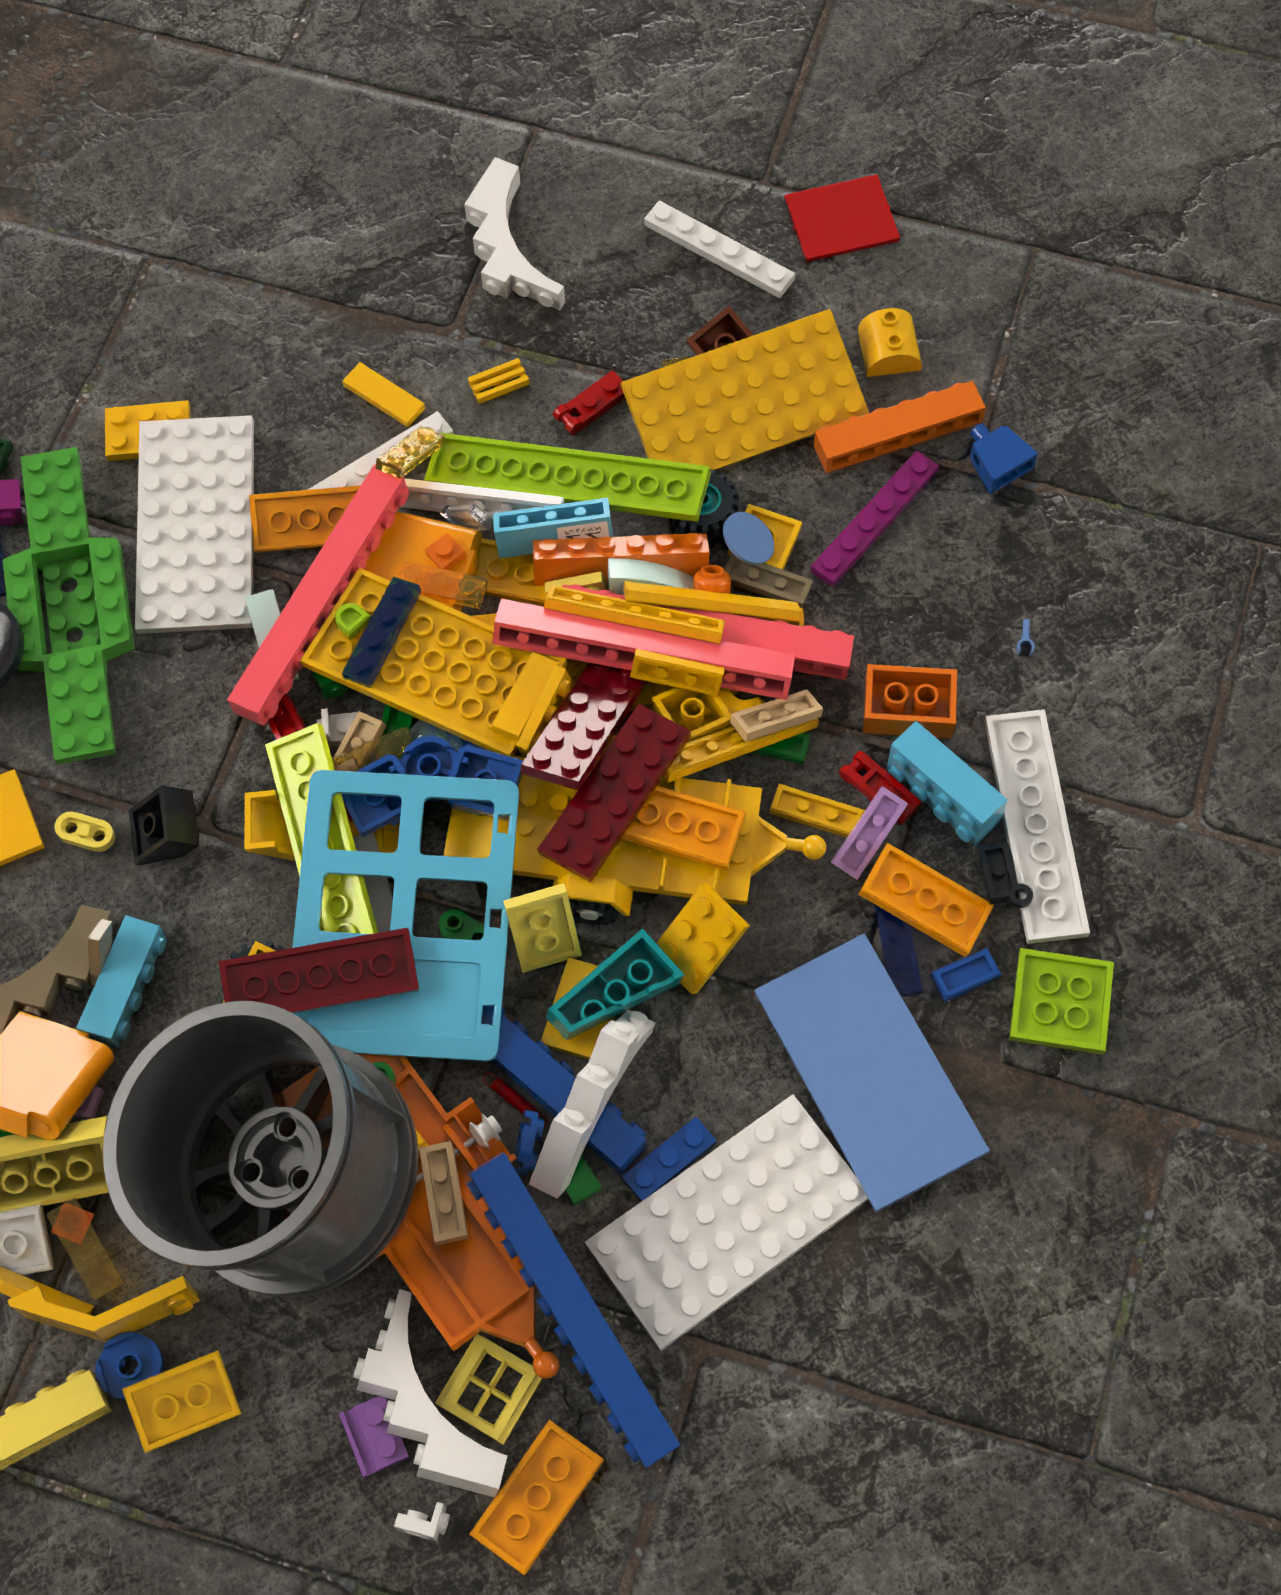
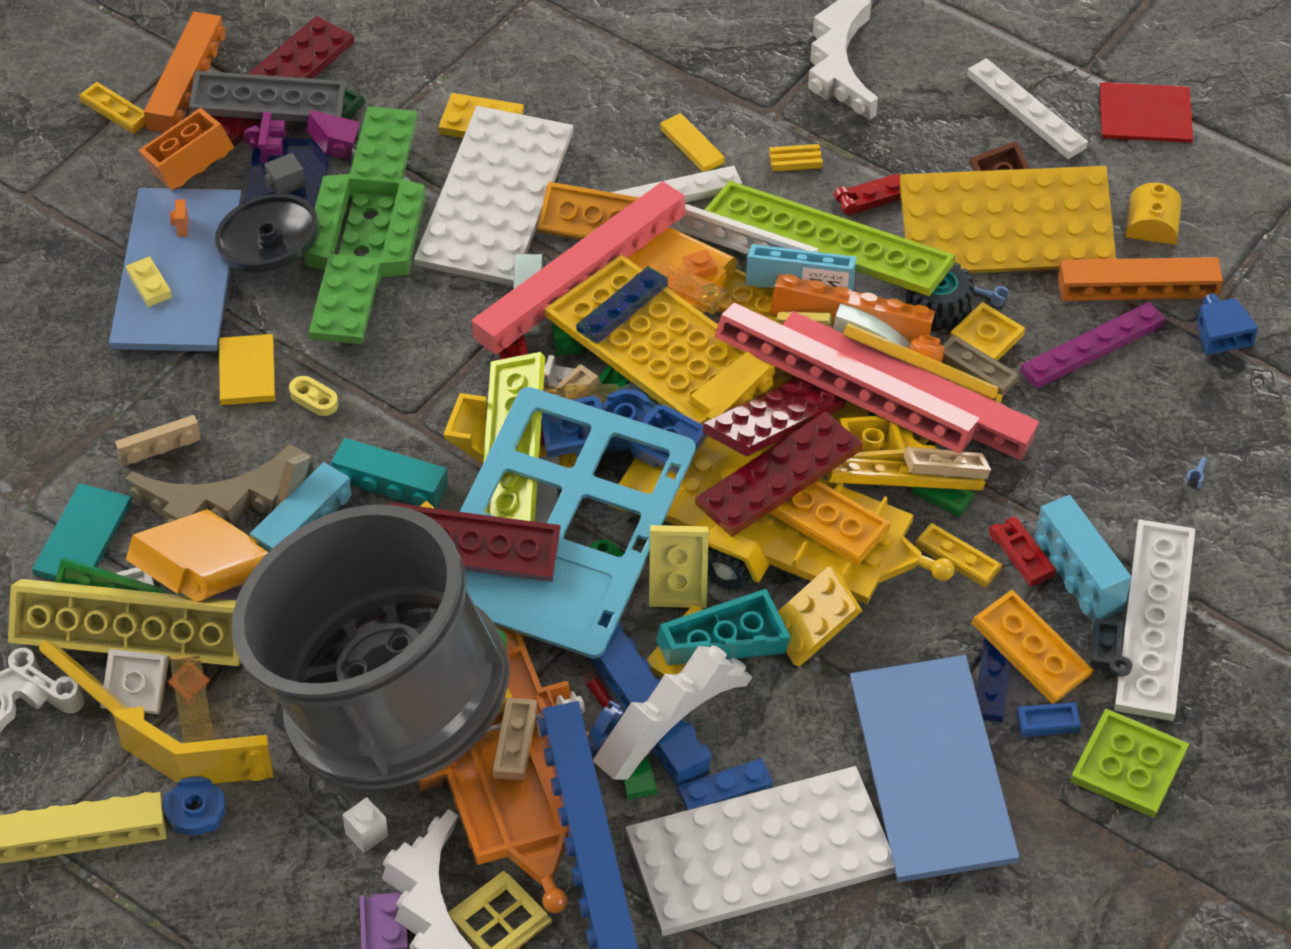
camera: 15 degrees right, 15 degrees down
(163, 825) = (382, 408): black slope -> none
(181, 1401) = (228, 844): yellow tile -> none
(199, 903) = (391, 473): none -> teal brick
(317, 1332) = (365, 825): none -> white brick
(351, 619) = (599, 288): lime tile -> none
(410, 452) = (698, 181): clear yellow plate -> none
(467, 516) = (730, 243): clear tile -> none
(634, 614) = (848, 347): yellow tile -> none
(677, 672) = (868, 401): yellow tile -> none
(748, 538) = (971, 323): medium blue piece -> none
(756, 489) = (996, 297): none -> medium blue hand
(869, 832) = (998, 579): lavender plate -> none
(906, 694) = (1064, 474): orange brick -> none

